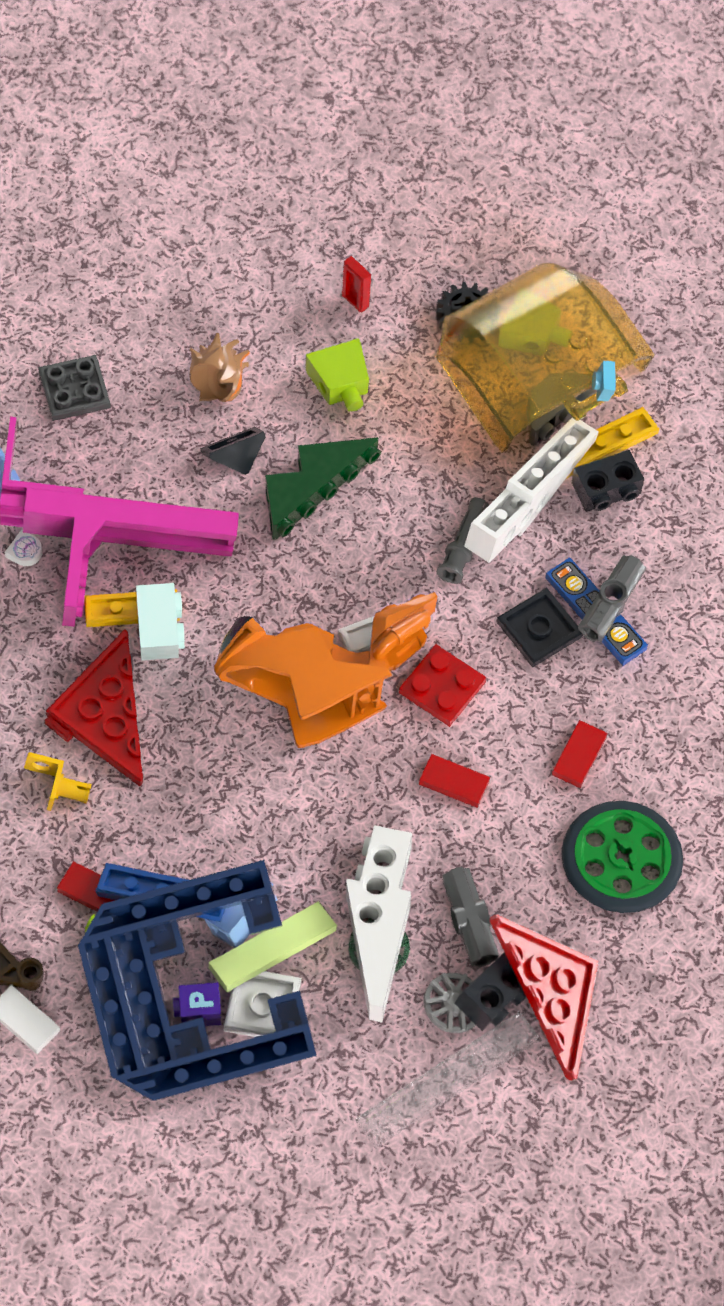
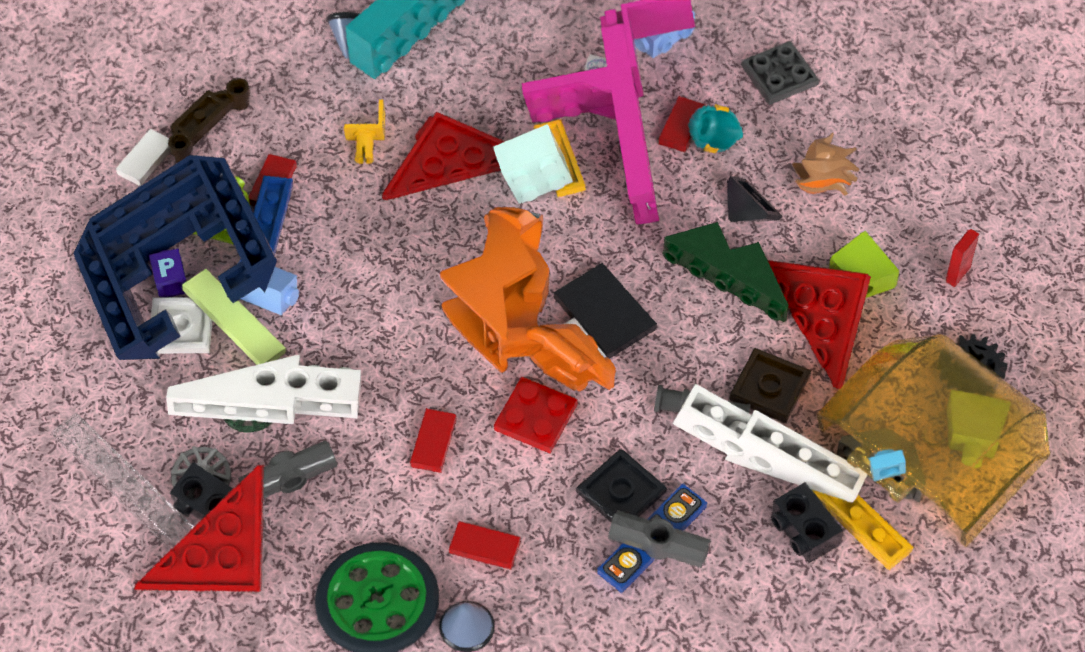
camera: 85 degrees right, 5 degrees down
(113, 483) = (676, 130): none -> red tile
(141, 456) = (714, 128): none -> teal hair
(334, 598) = (605, 310): none -> black tile
(384, 408) = (826, 309): none -> red tile
(449, 480) = (770, 385): none -> dark brown tile
(661, 784) = (467, 626): none -> sand blue hat

